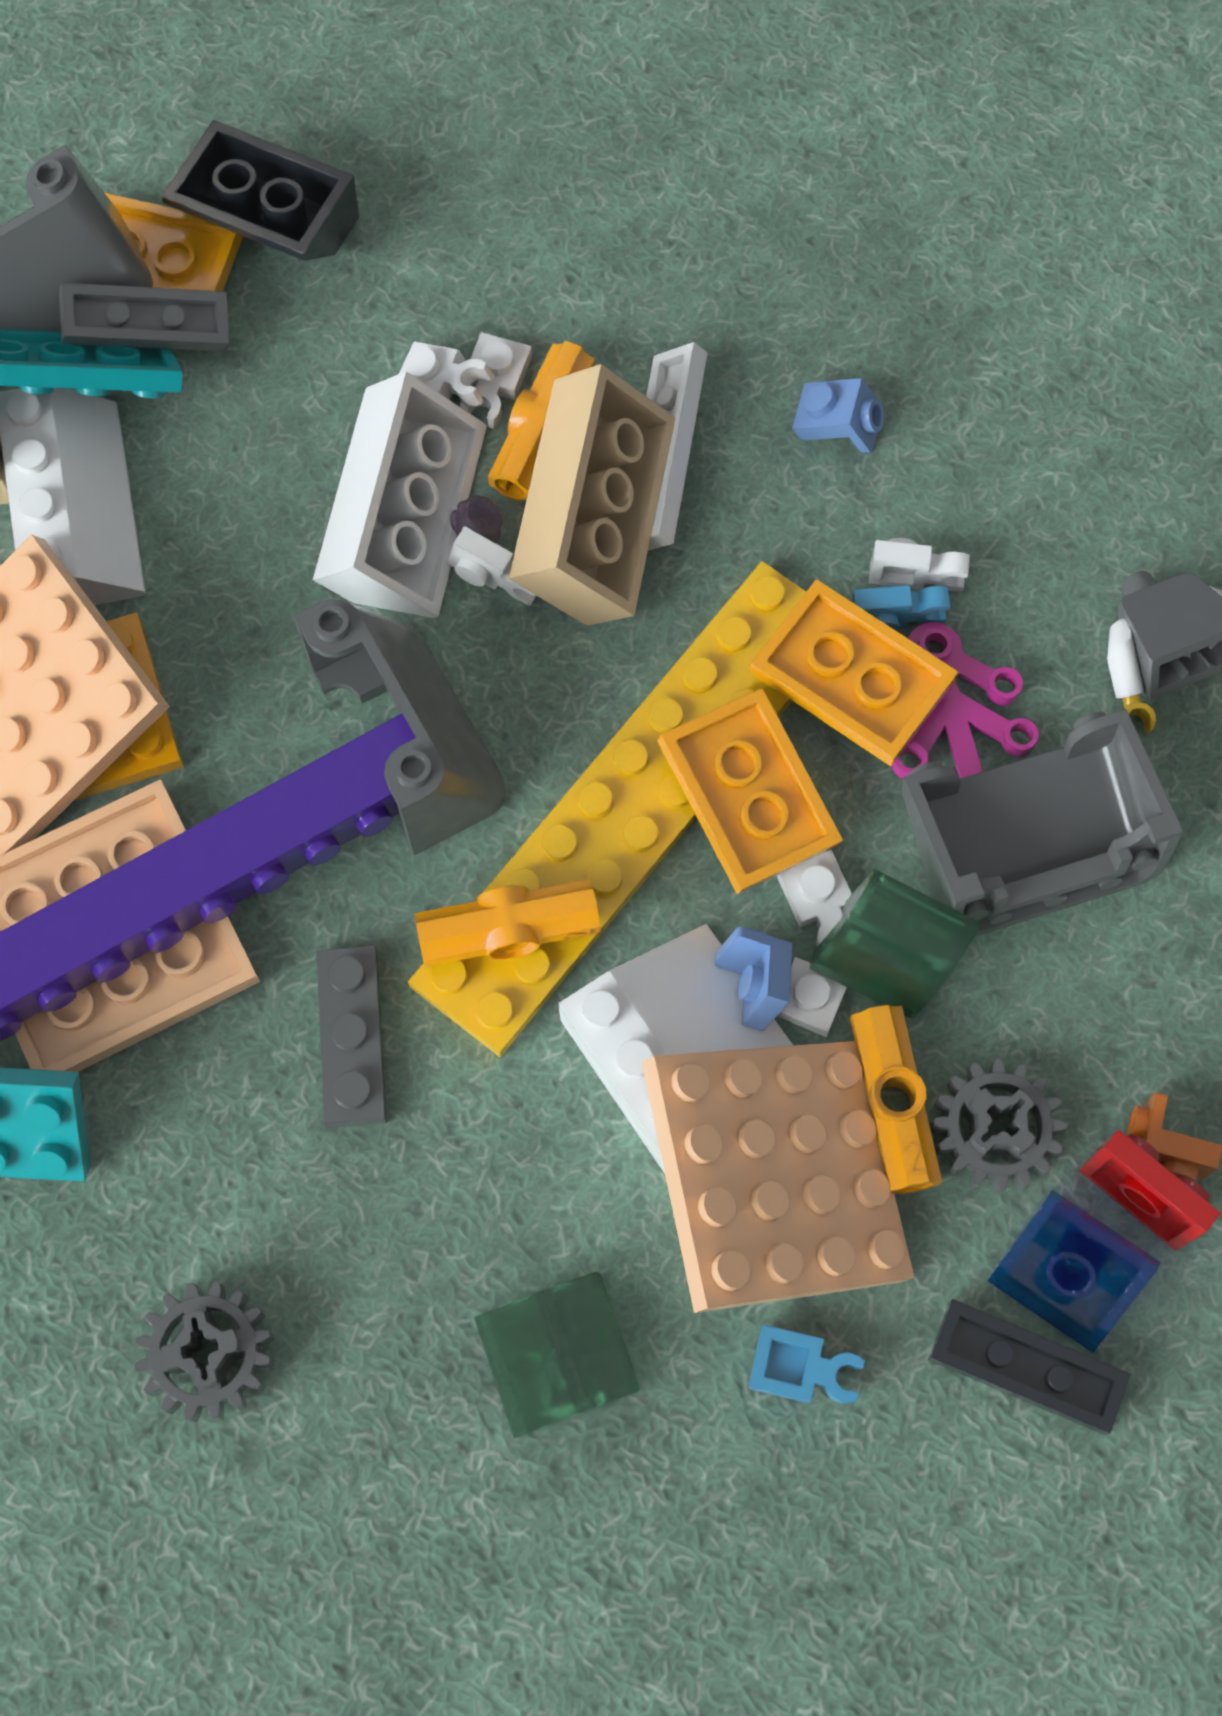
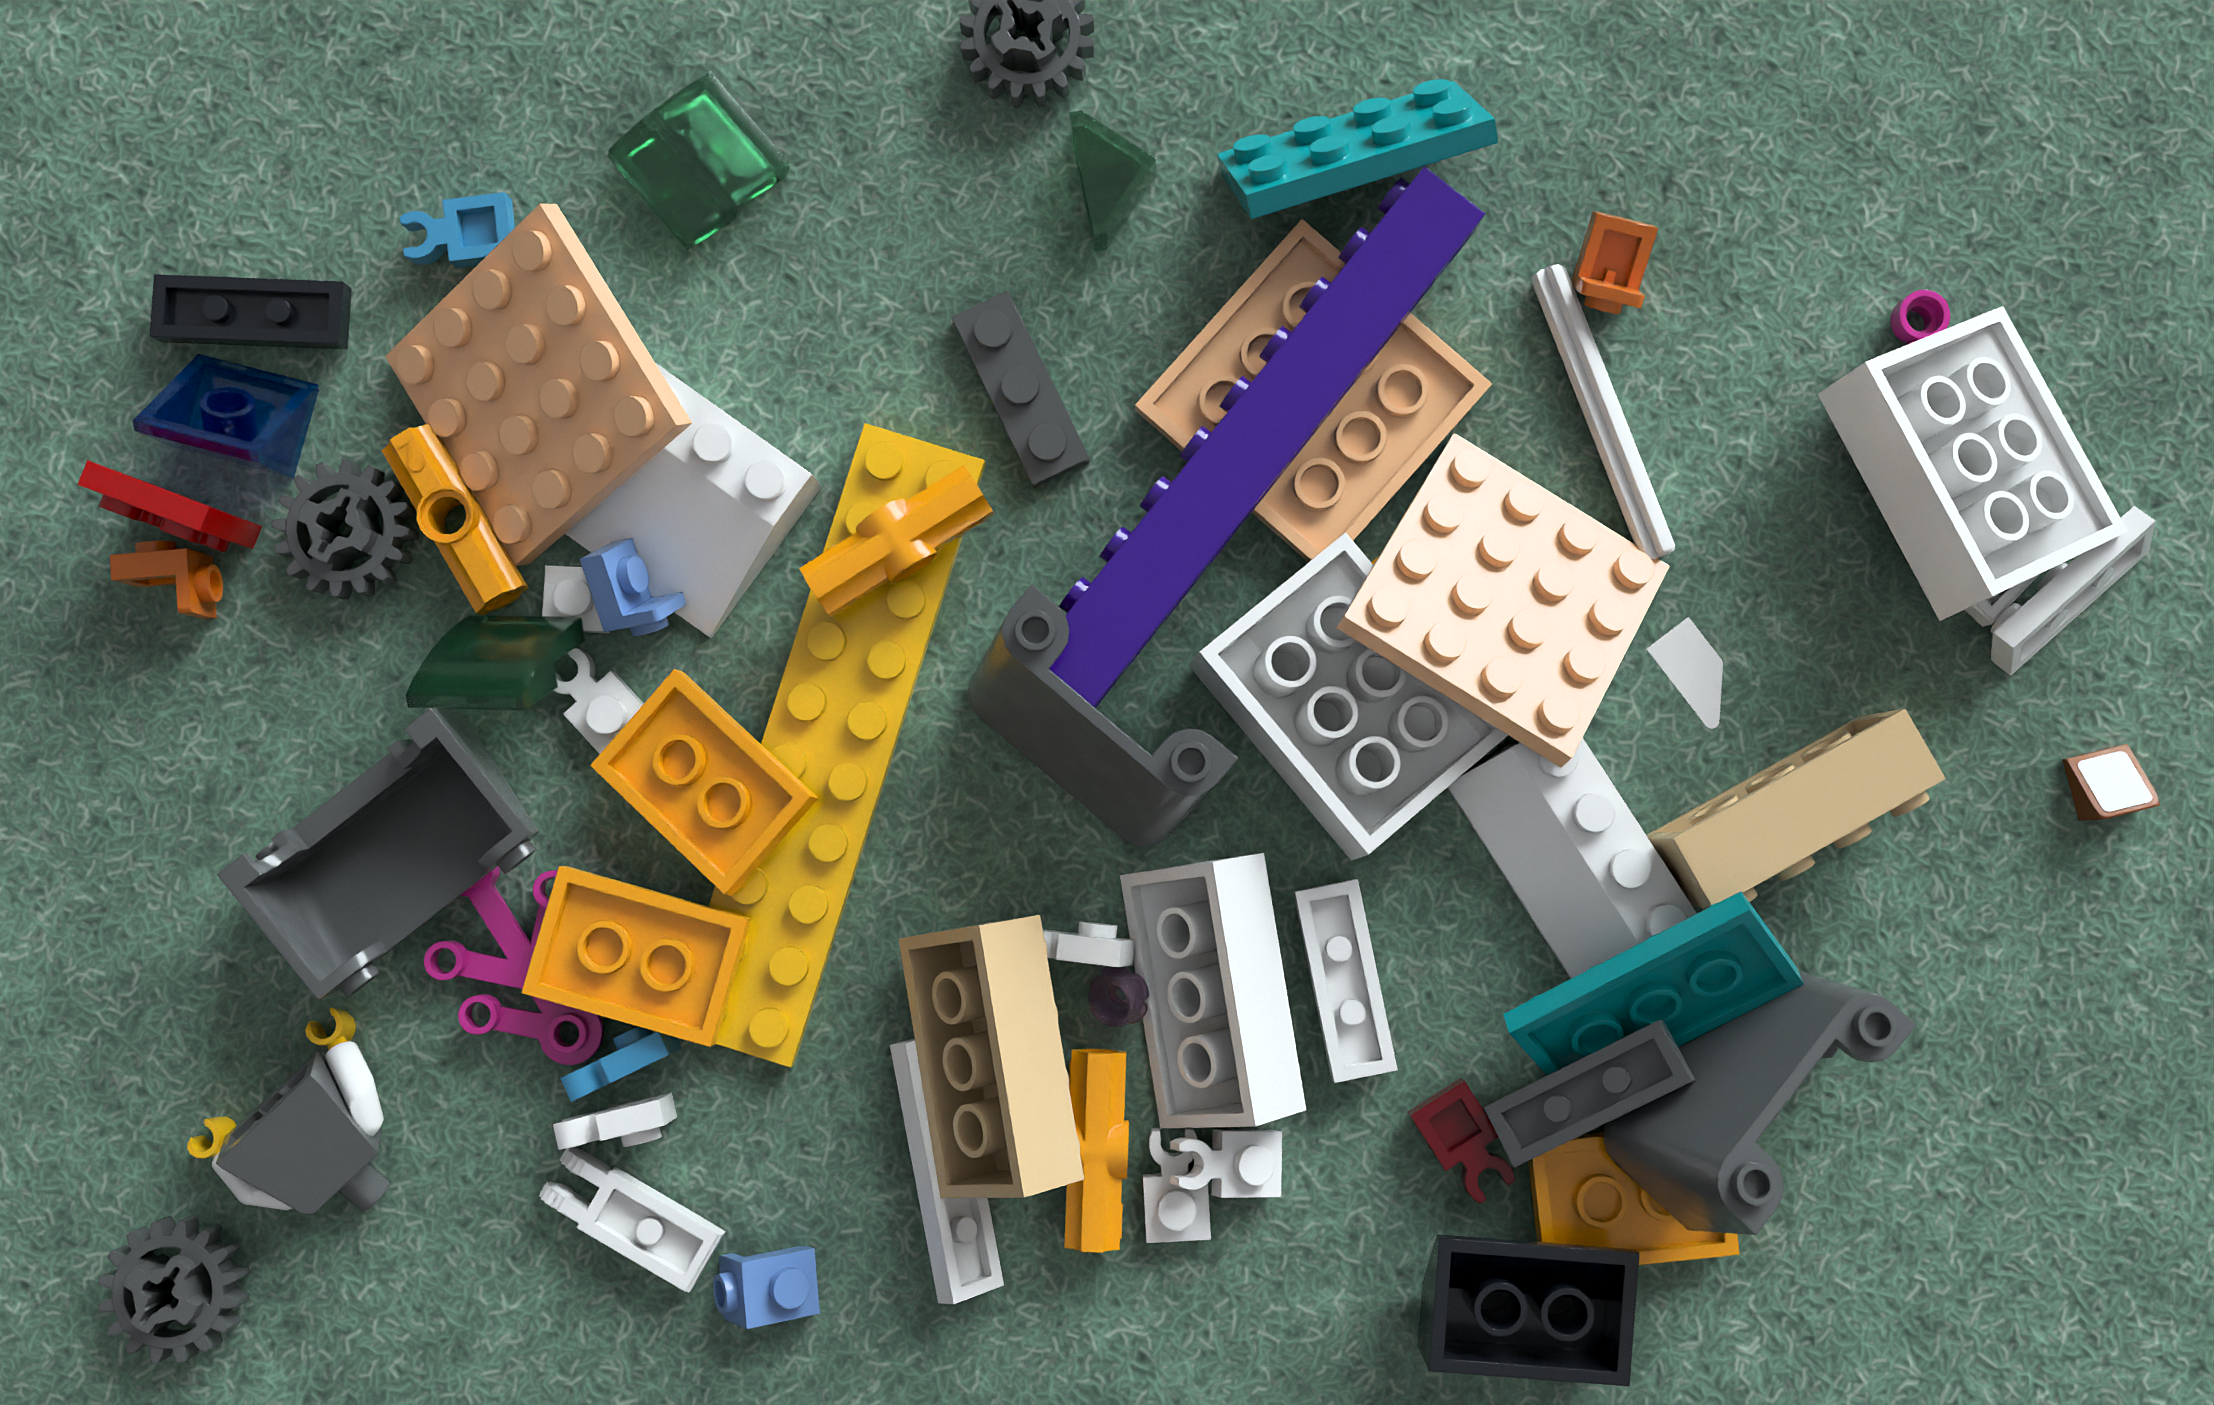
camera: 160 degrees right, 15 degrees up
(190, 1186) = (1111, 175): none -> clear green slope
(212, 657) = (1332, 715): none -> white slope
(257, 338) = (1457, 1132): none -> dark red plate
(293, 474) = (1345, 980): none -> white plate
(927, 493) = (636, 1220): none -> white hinge

